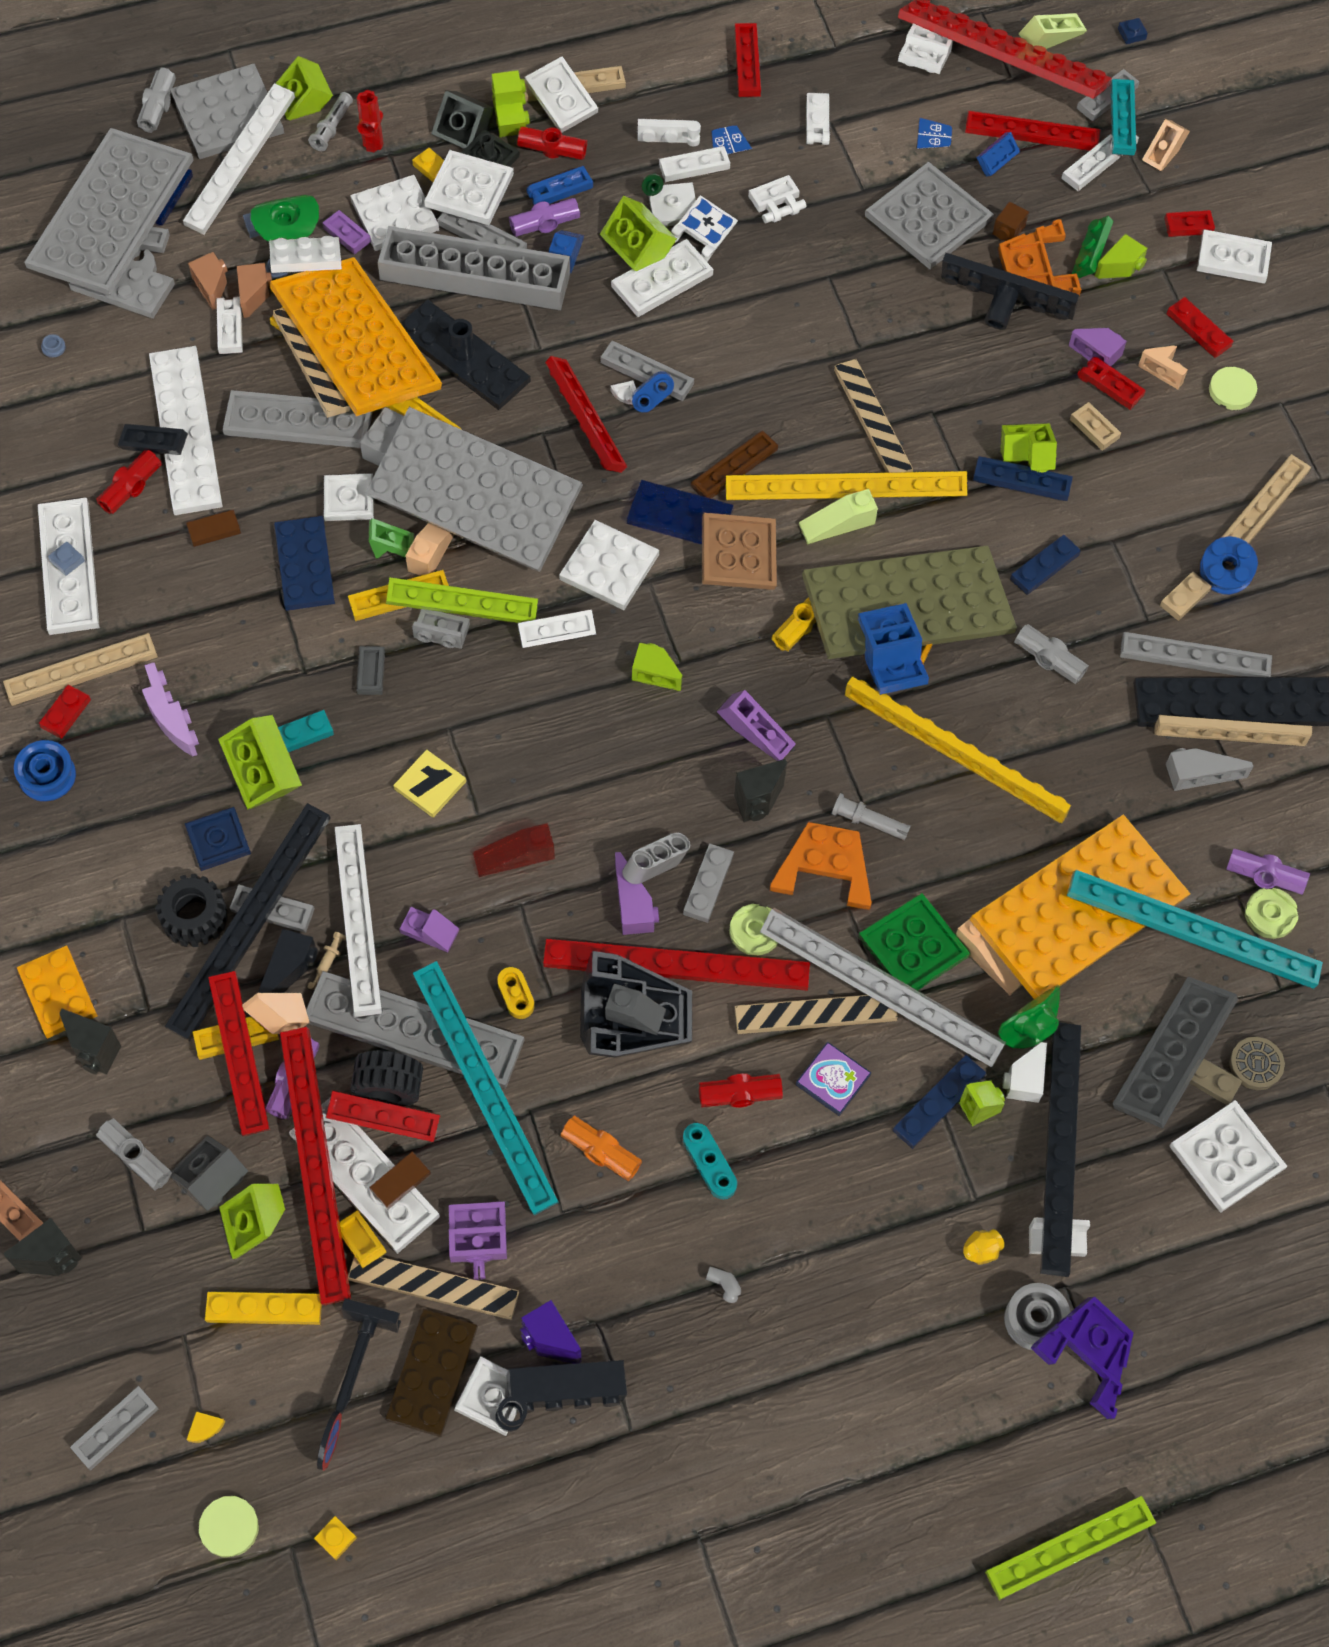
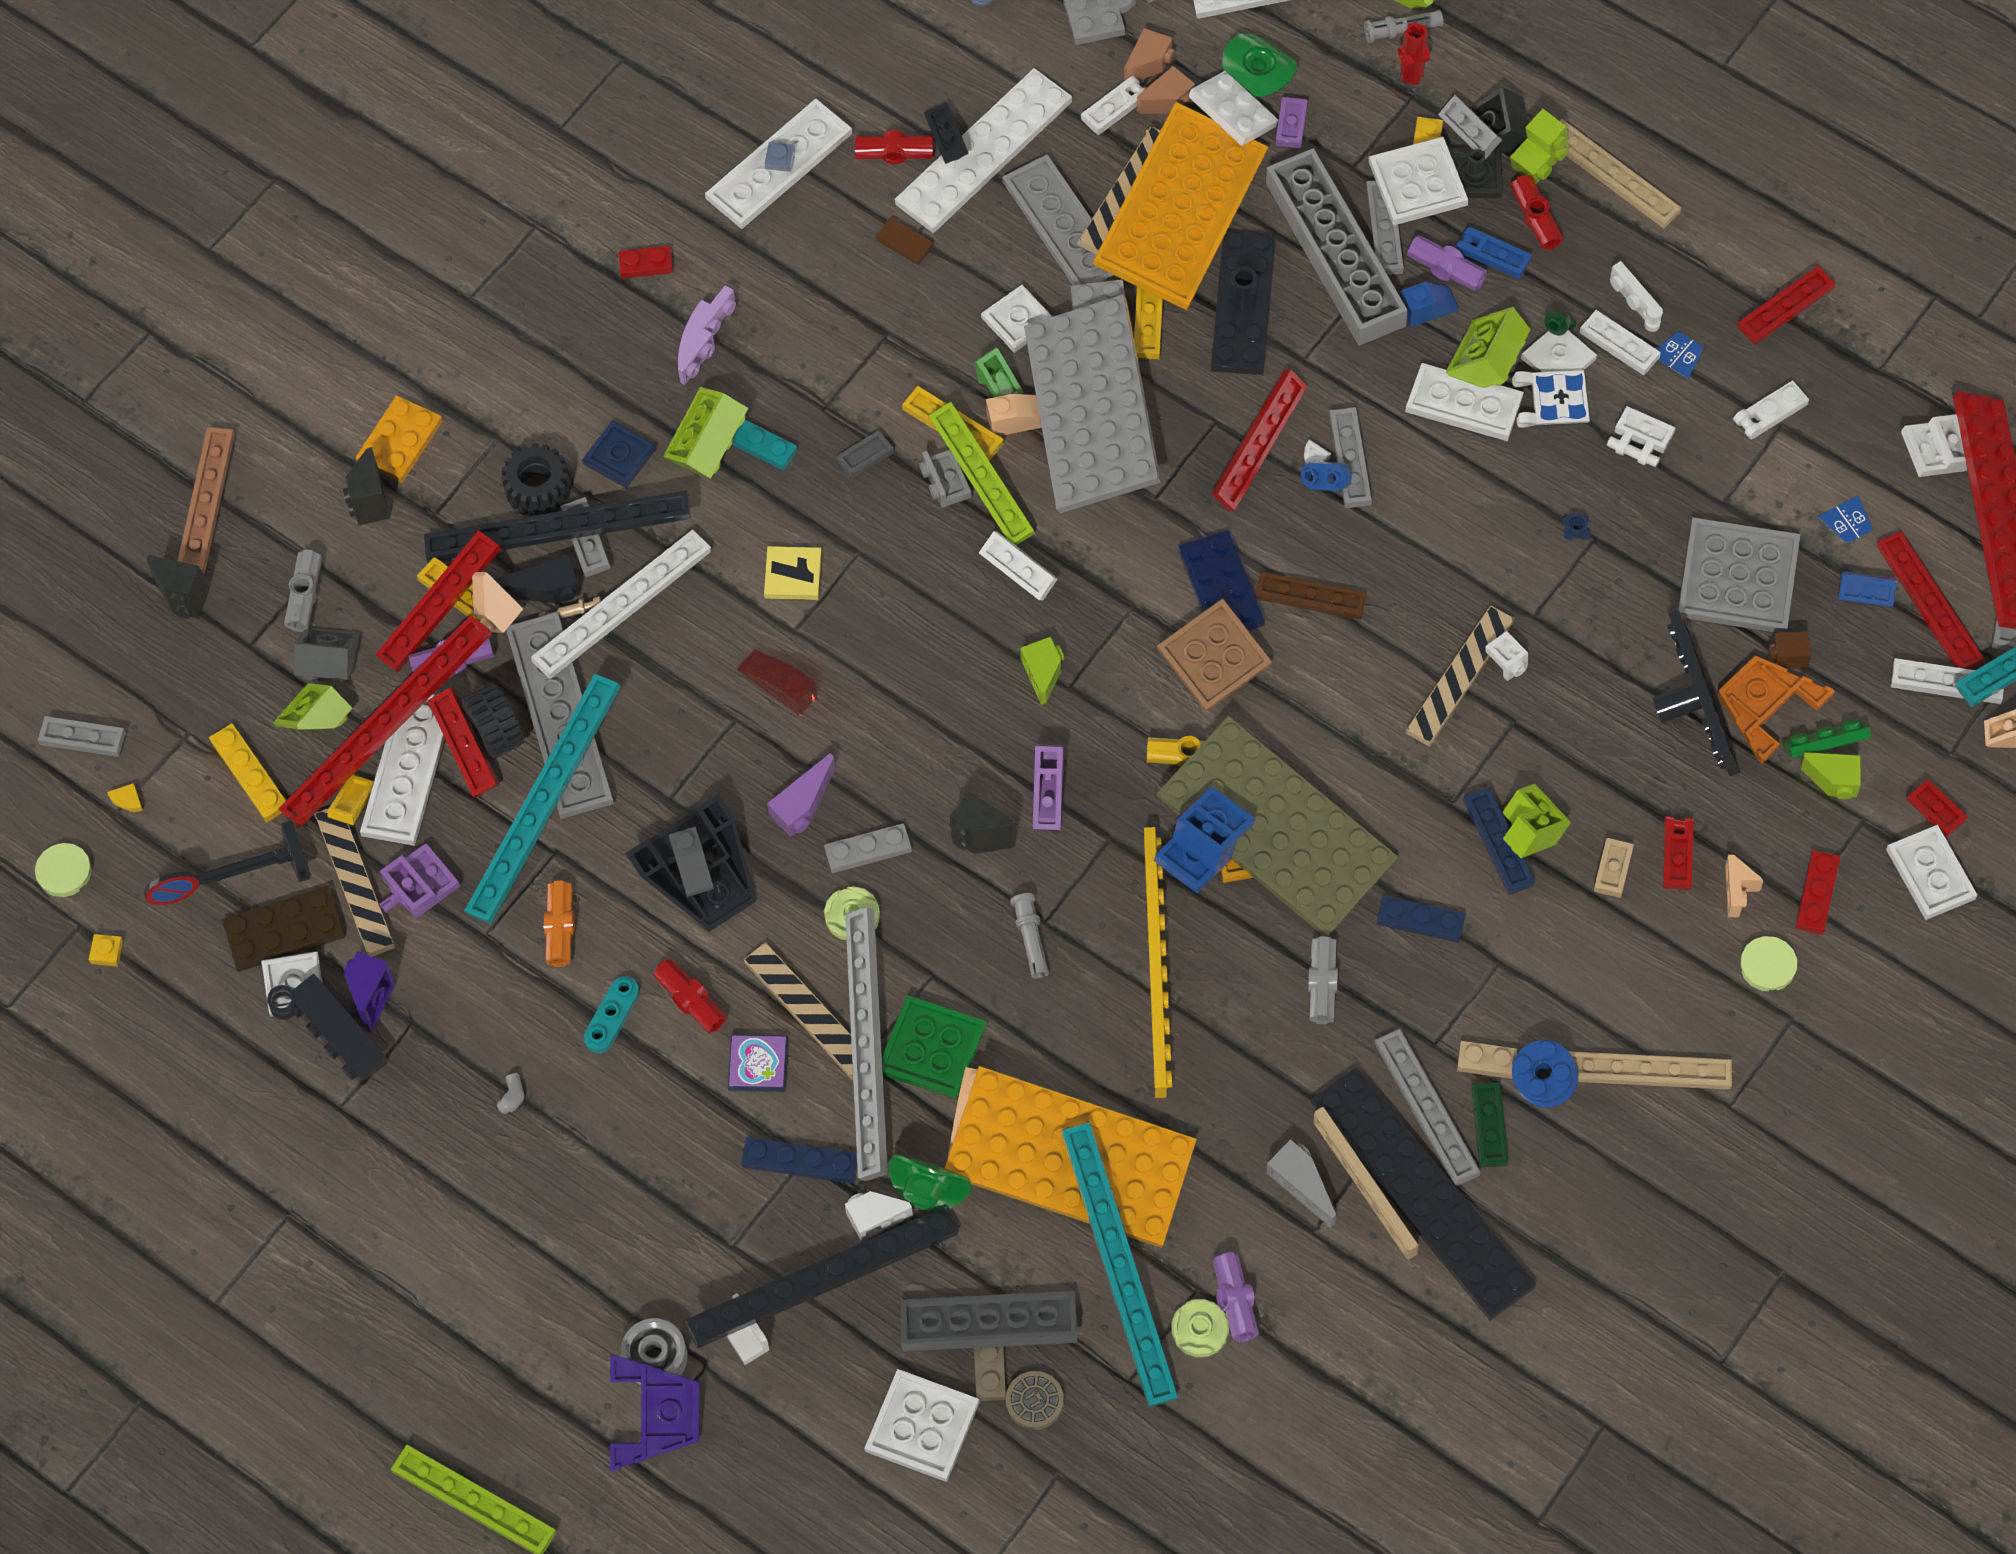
camera: 60 degrees right, 0 degrees up
(46, 785) = (572, 273): blue wheel -> none
(80, 669) = (693, 244): tan tile -> none
(304, 563) = (927, 332): dark blue plate -> none
(393, 205) = (1347, 139): white plate -> none
(400, 1180) = (418, 792): reddish brown tile -> none
(429, 928) = (658, 665): medium lavender slope -> none
(452, 132) = (1469, 126): none -> light grey plate
(515, 994) = (648, 769): yellow plate -> none
(561, 94) = (1596, 181): white plate -> none
(609, 565) = (1121, 564): white plate -> none
(656, 858) = (861, 787): light grey beam -> none
(686, 964) = (775, 879): red plate -> none
(814, 274) = (1576, 520): none -> dark blue plate
(827, 853) = (971, 925): orange wing -> none
(839, 485) = (1363, 699): yellow plate -> none
(840, 517) = (1324, 715): yellowish green slope -> none
(884, 378) = (1508, 655): none -> white bracket
(981, 1101) = (819, 1189): lime slope -> none
(983, 1246) = (687, 1273): yellow rock -> none
(1098, 343) = (1711, 816): medium lavender slope -> none
(1236, 627) = (1489, 1124): none -> dark green tile

